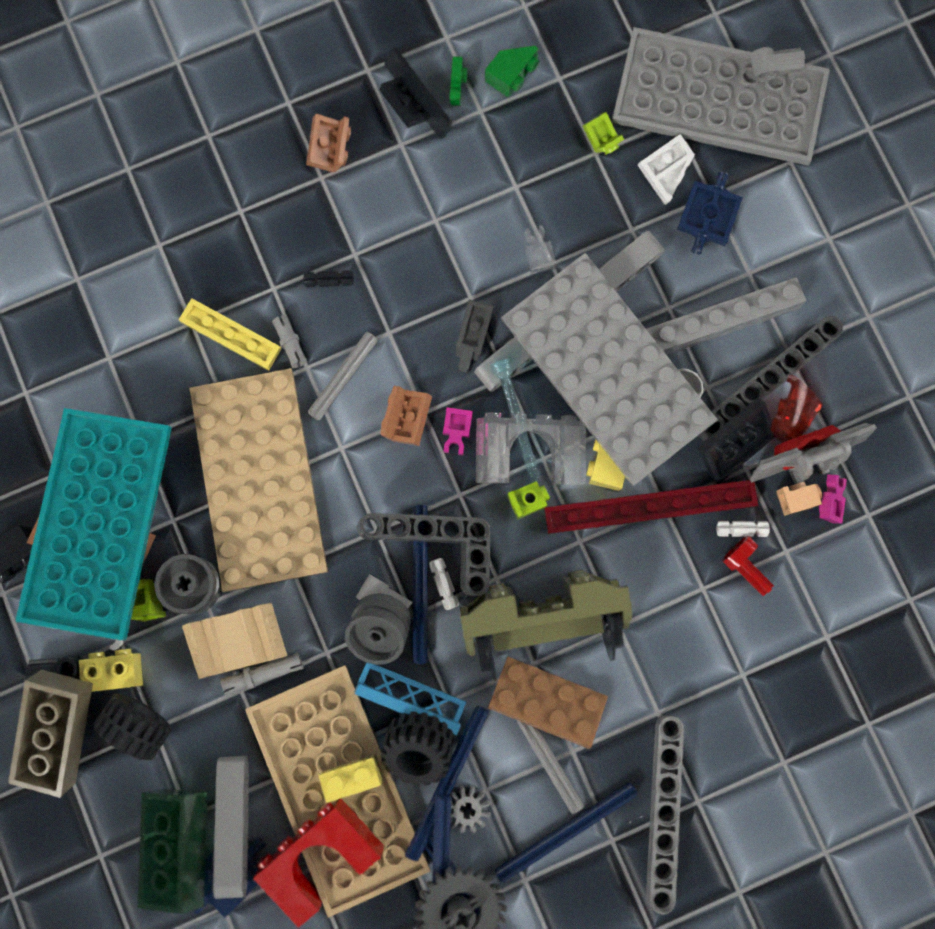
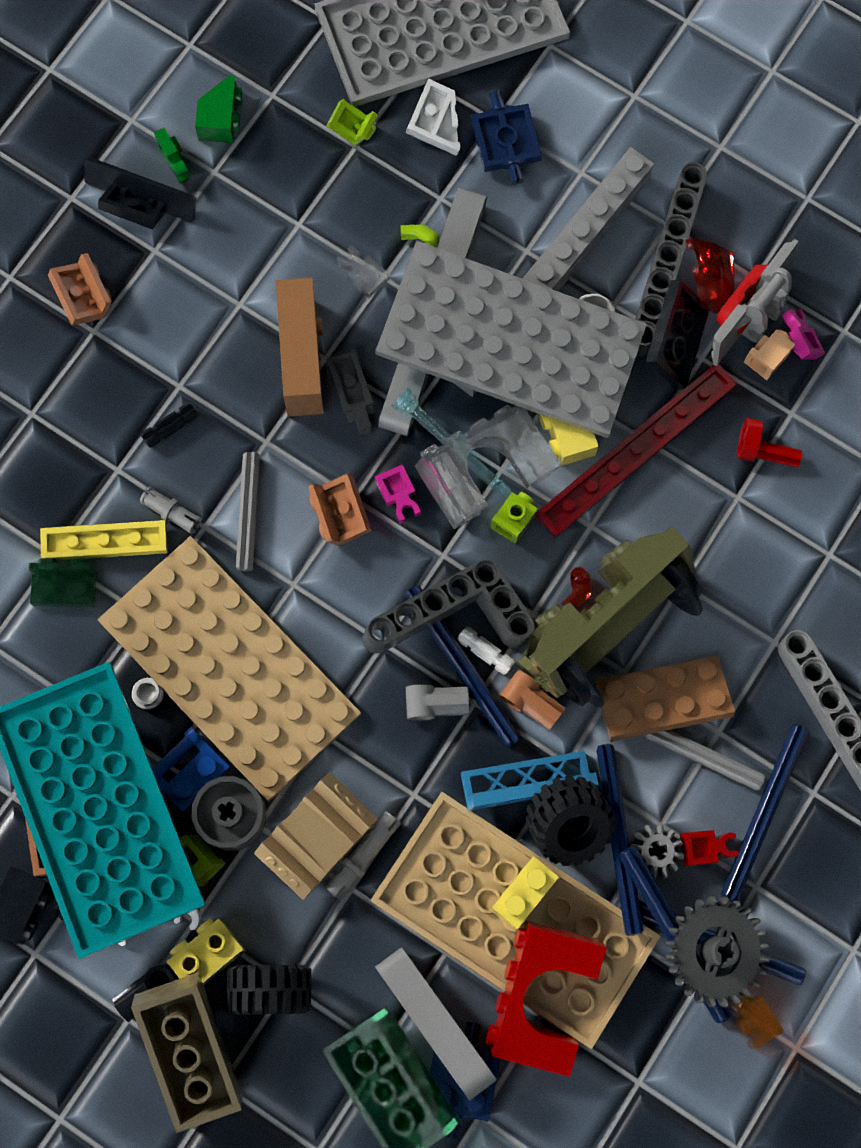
camera: 40 degrees left, 5 degrees down
(183, 348) = (63, 583): none -> clear green bracket
(188, 541) = (201, 769): none -> blue plate
(190, 462) = (147, 694): none -> white plate
(378, 629) = (453, 730): dark grey wheel -> none
(450, 637) = (524, 695): none -> nougat piece
(453, 279) = (299, 346): none -> medium nougat brick
(503, 828) = (703, 848): none -> red plate
(541, 583) = (580, 587): none -> clear red arm
(600, 247) = (421, 232): none -> lime arm
(743, 528) = (736, 415): white axle -> none

